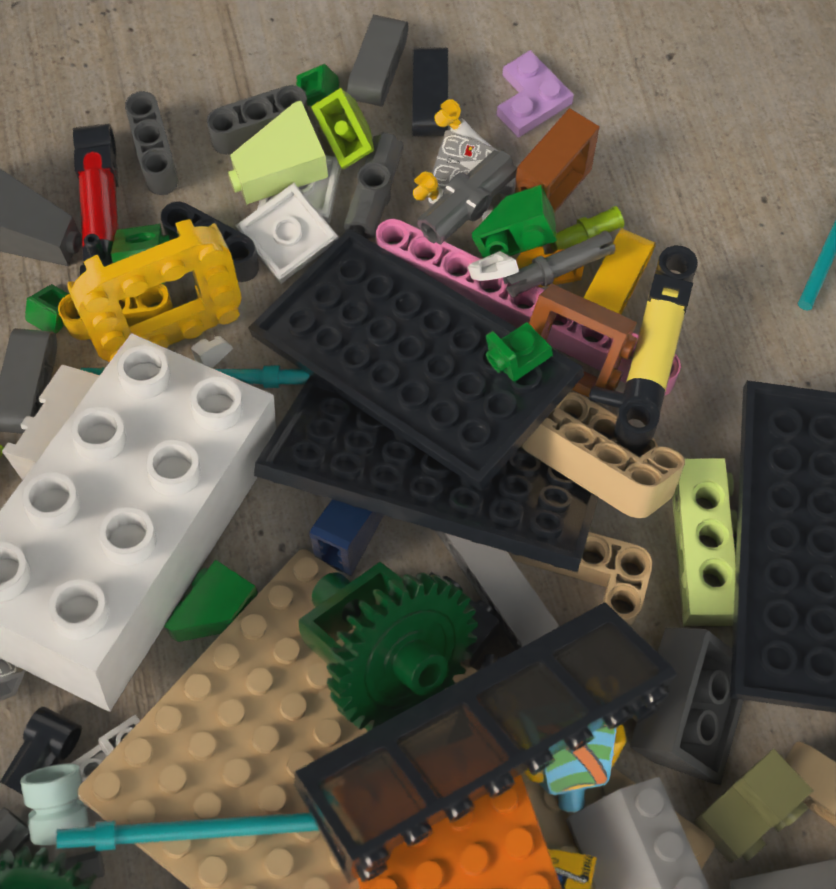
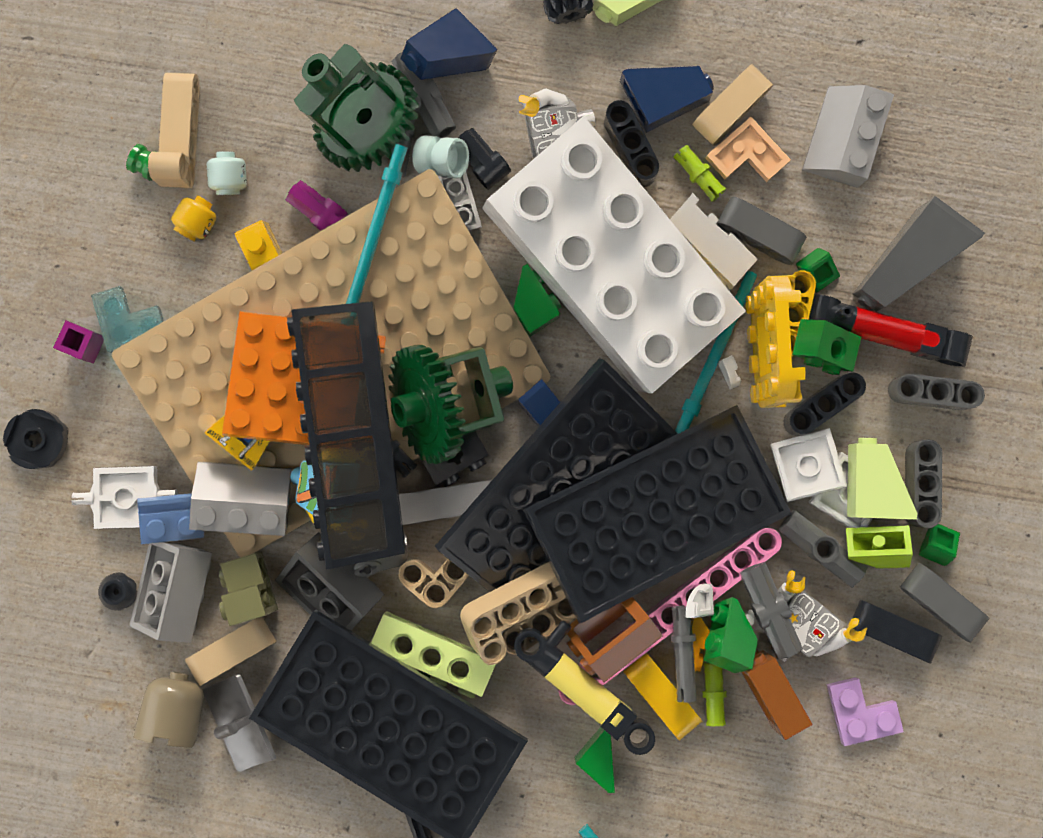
camera: 115 degrees right, 20 degrees up
(517, 351) = (614, 582): green bracket -> none
(720, 315) = (597, 760): none -> green slope

